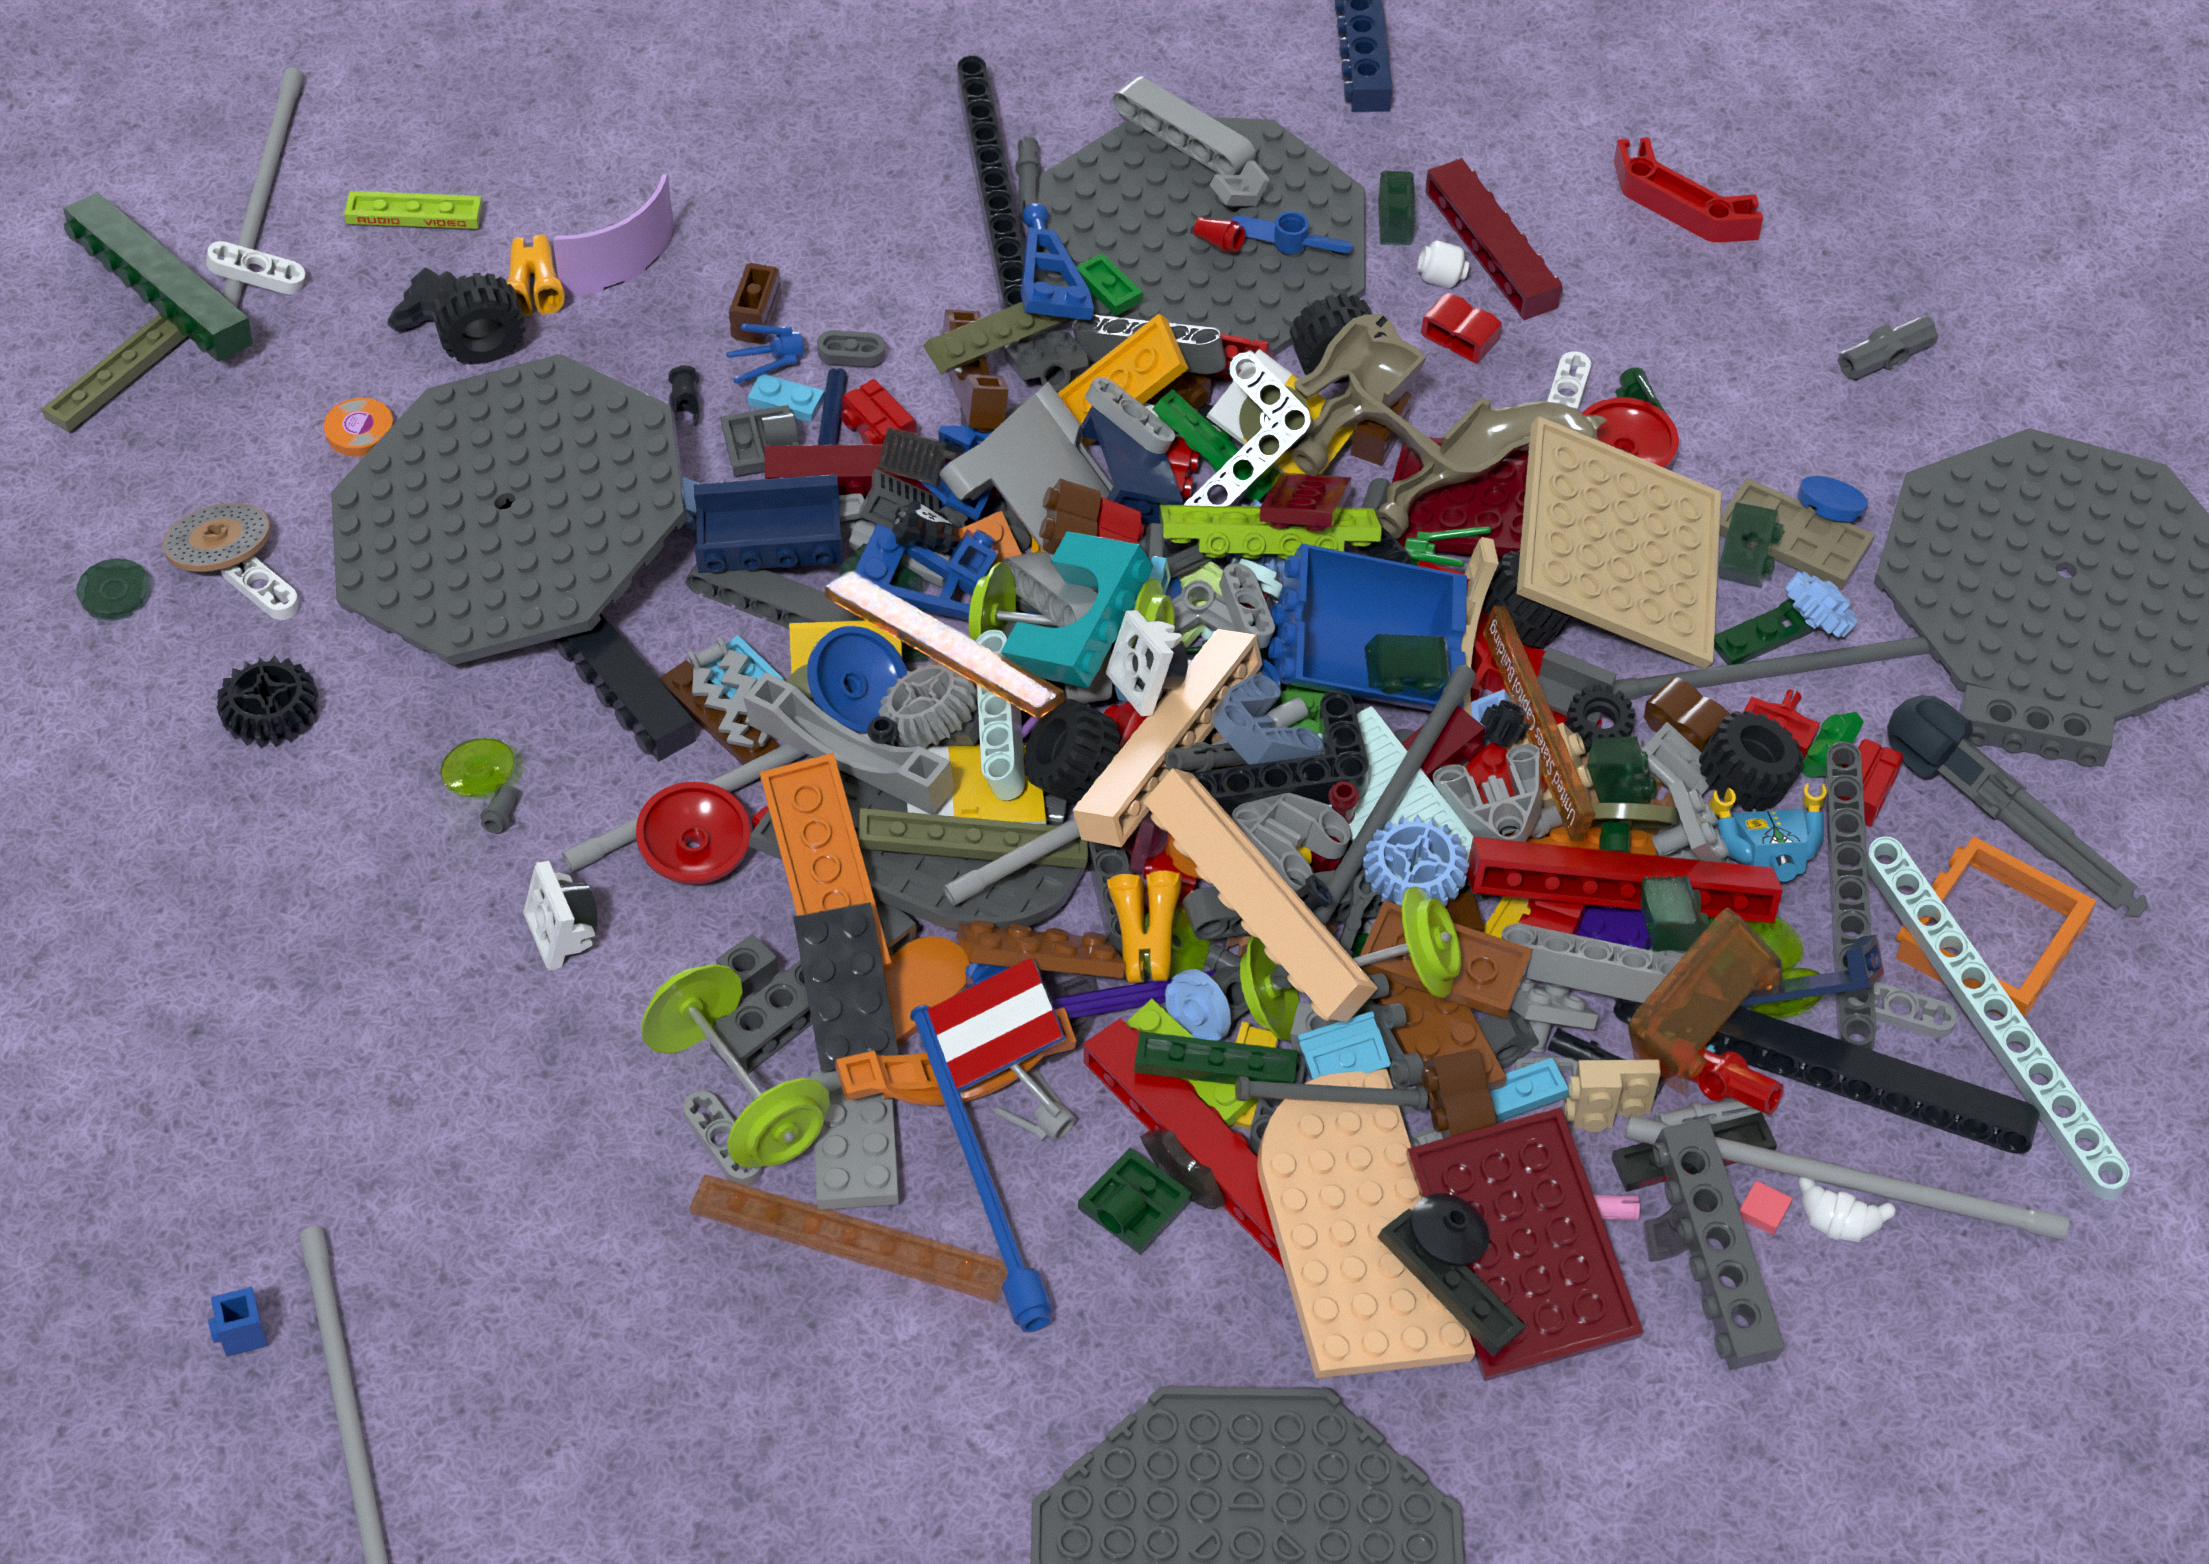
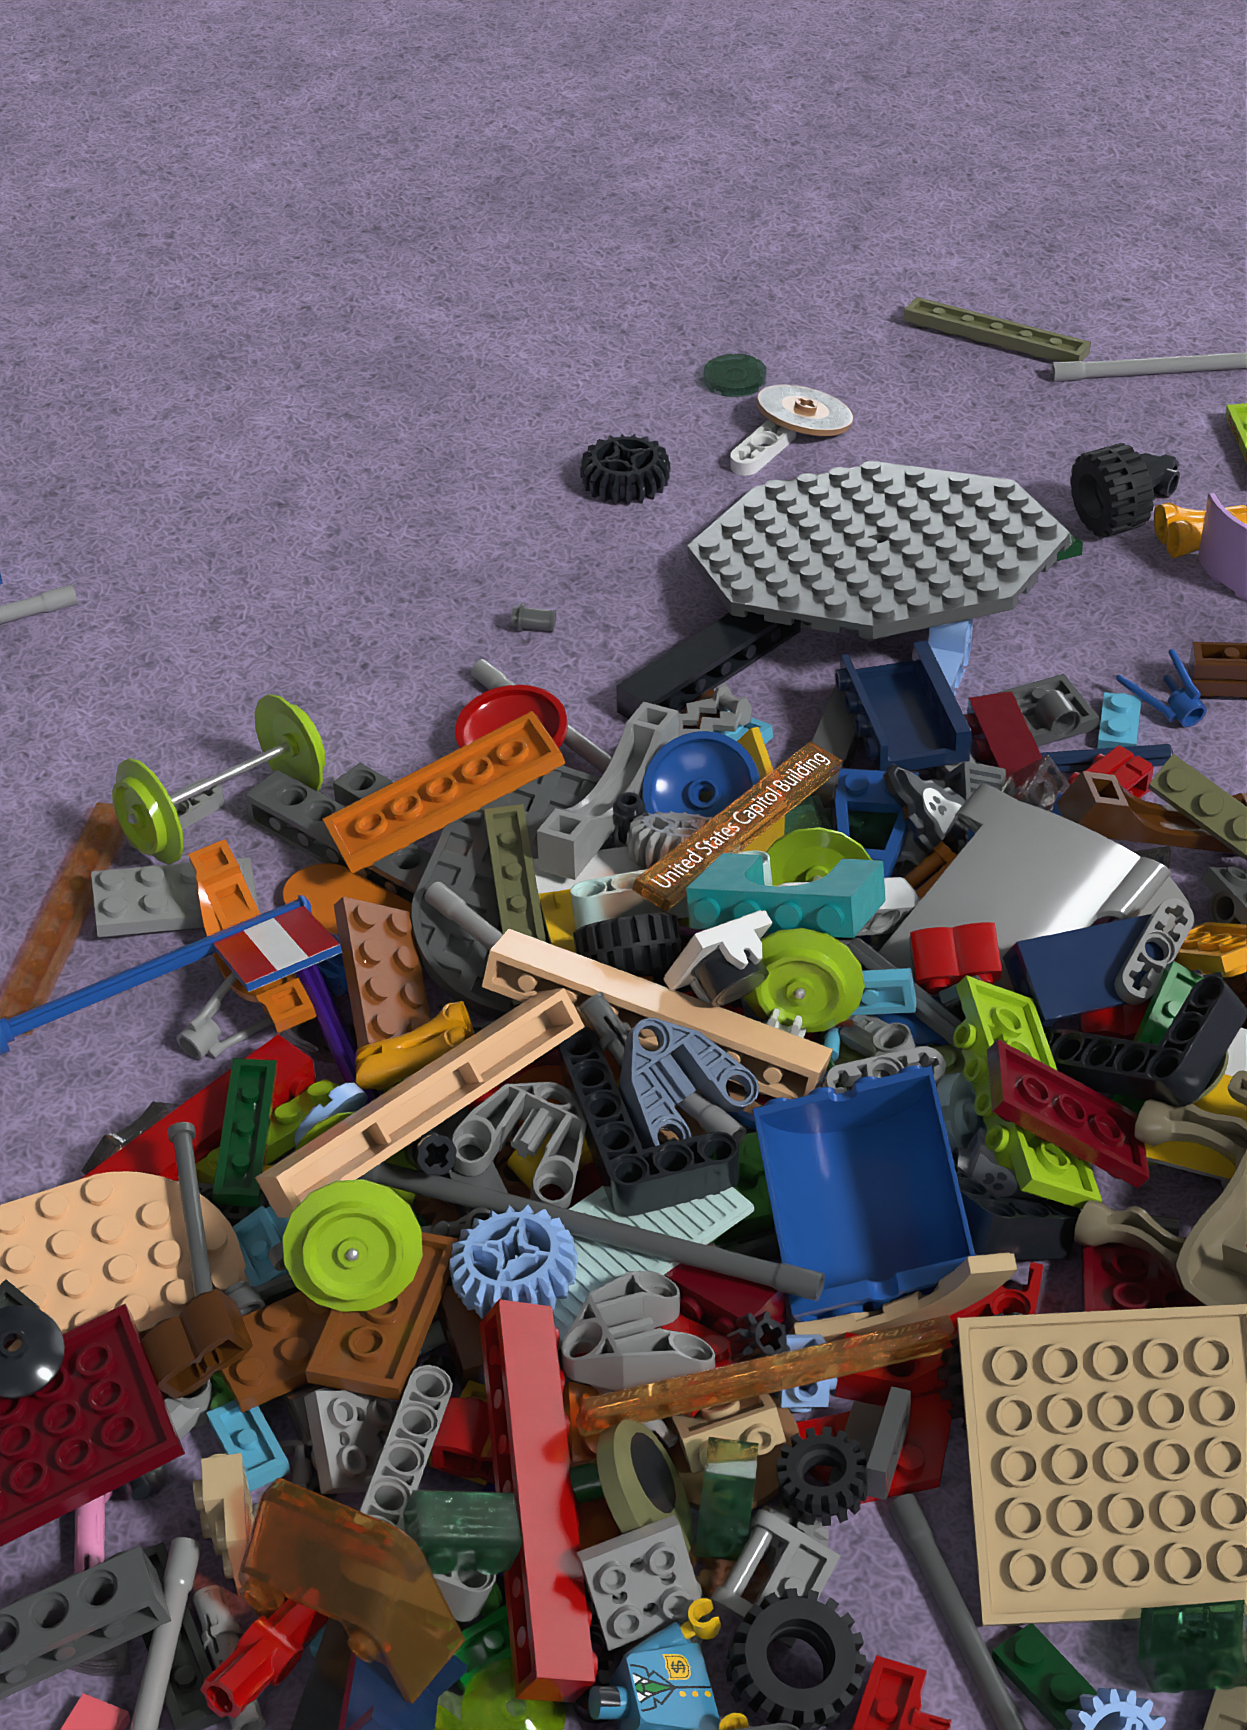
camera: 85 degrees right, 10 degrees down
(158, 277) = (1087, 317): brick -> none
(230, 269) = (1126, 379): white beam -> none
(357, 425) = (971, 459): orange tile -> none
(477, 767) = (574, 594): clear neon green dish -> none
(559, 914) = (400, 663): white piece -> none
(684, 393) = (1088, 649): black piece -> none
(845, 983) = (315, 837): black plate -> none
(851, 348) = (1207, 752): dark grey plate -> none
(973, 555) = (904, 853): blue brick -> none
(1069, 509) = (955, 899): reddish brown brick -> none
(1135, 1201) = (94, 1105): dark green plate -> none
(1344, 799) = (587, 1174): dark red pin -> none
(1407, 663) = (812, 1220): clear green brick -> none
(1423, 550) = (1062, 1269): green plant -> none
(1685, 711) = (877, 1590): reddish brown brick -> none

